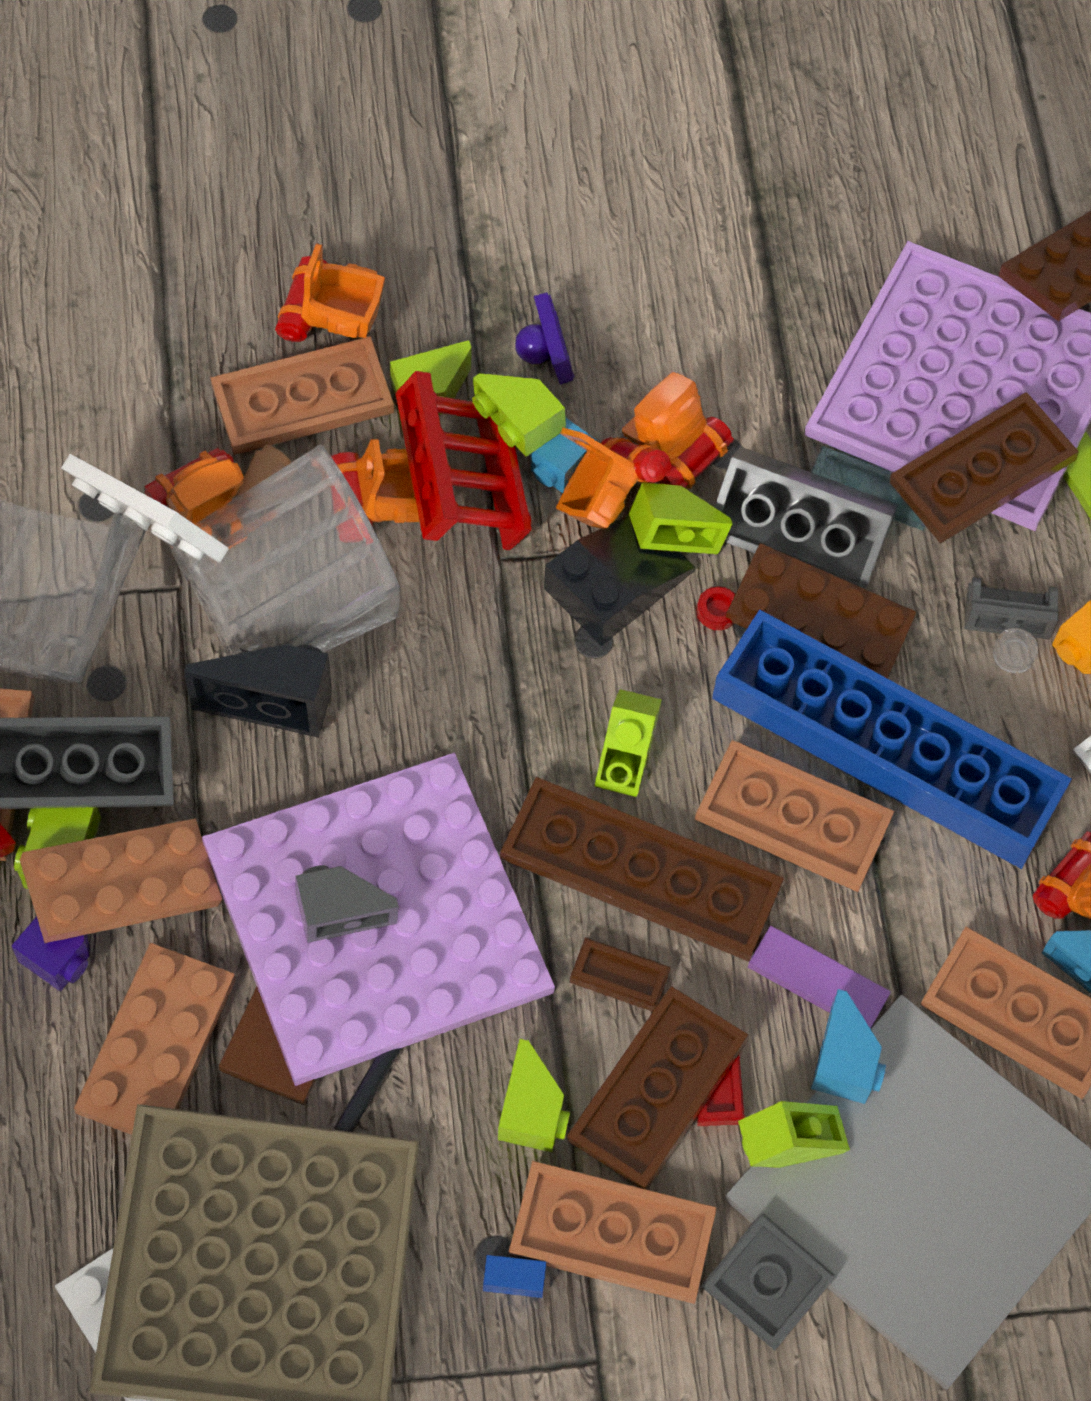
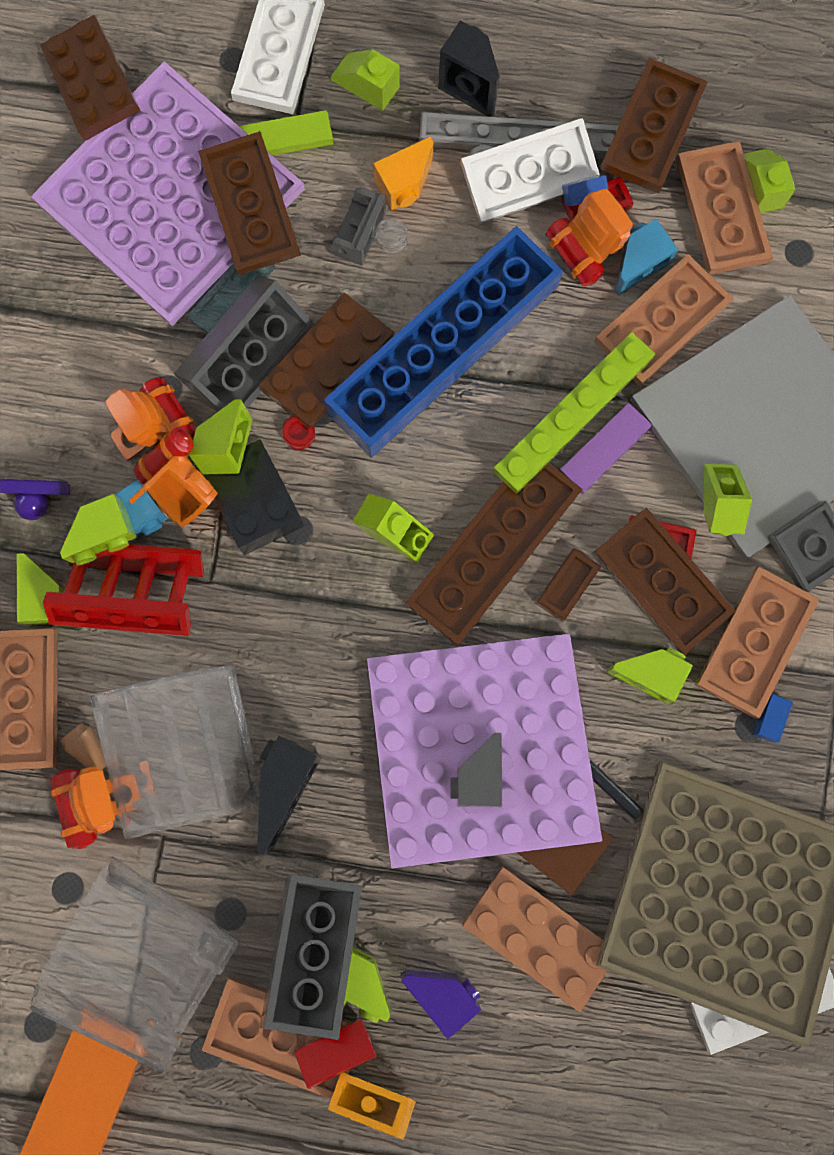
camera: 75 degrees left, 15 degrees up
(120, 880) = (413, 942): nougat plate -> none
(143, 510) = (102, 856): white plate -> none
(380, 483) = (124, 659): orange piece -> none
(794, 815) = (480, 427): nougat plate -> none
(848, 1054) = (674, 444): dark azure slope -> none
(850, 918) = (573, 413): none -> lime plate

